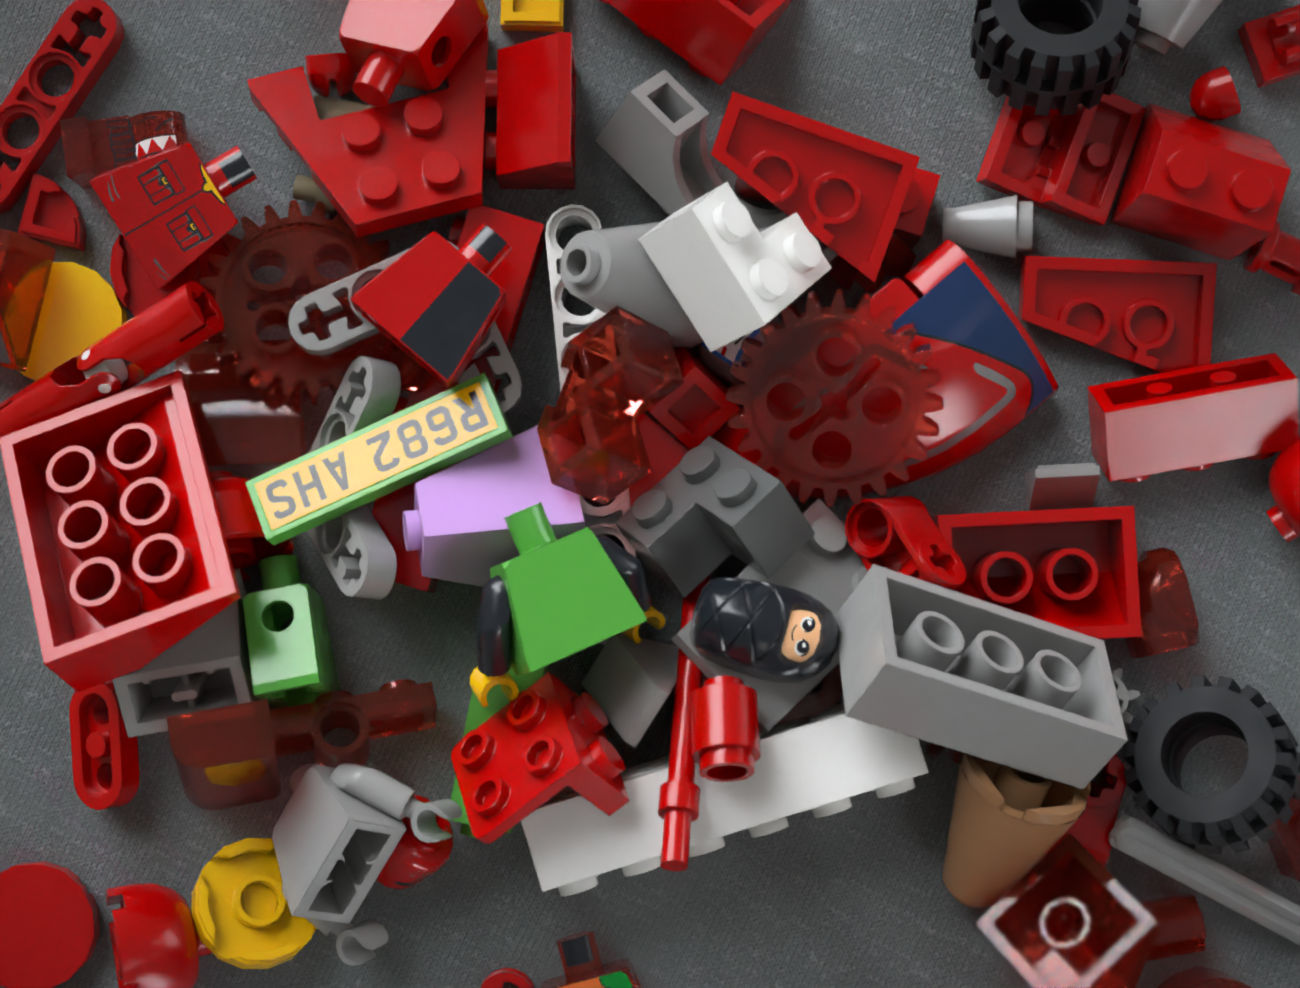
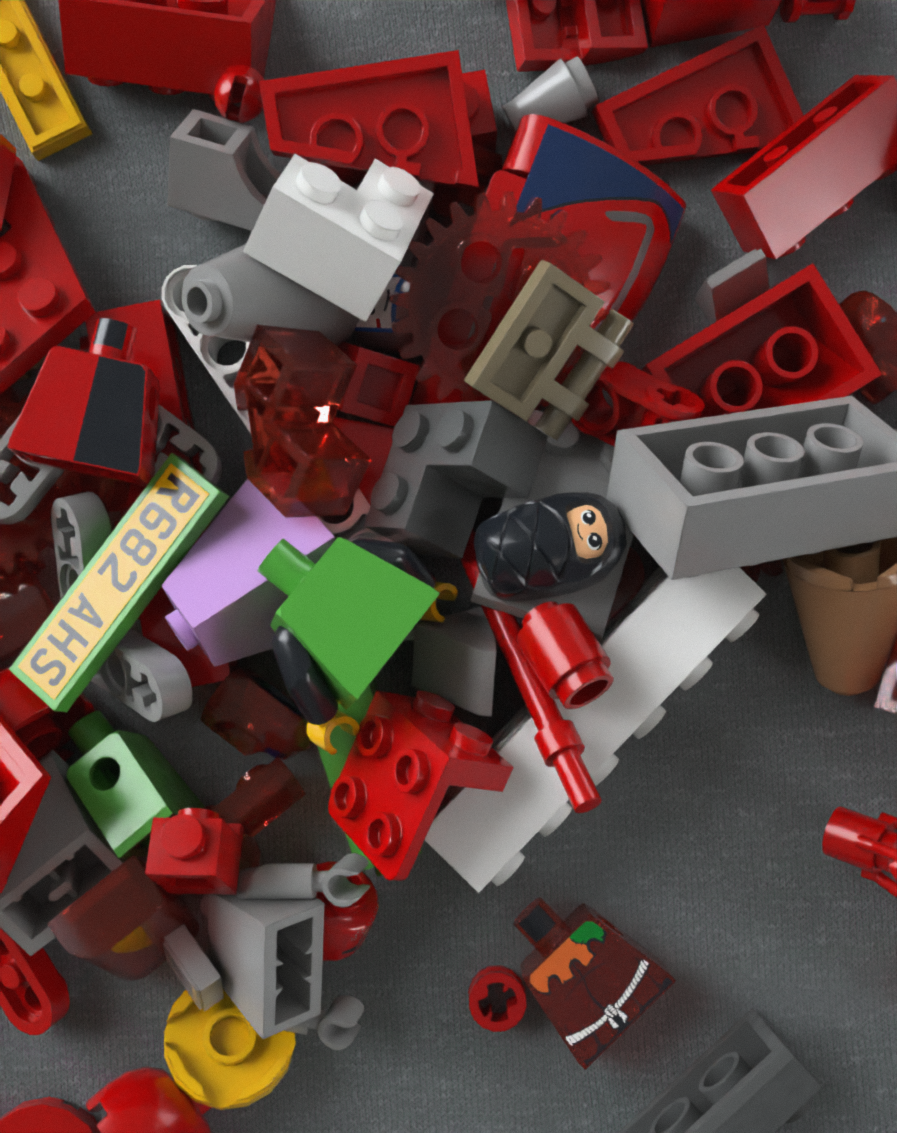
camera: 30 degrees left, 0 degrees up
(260, 825) = (193, 968): none -> light grey tile
(321, 726) = (195, 853): none -> red brick
(432, 638) = (256, 717): none -> clear red rock
(534, 114) = (100, 209): red slope -> none
(725, 67) = (251, 102): none -> red hinge
(845, 451) = (536, 341): none -> dark tan plate

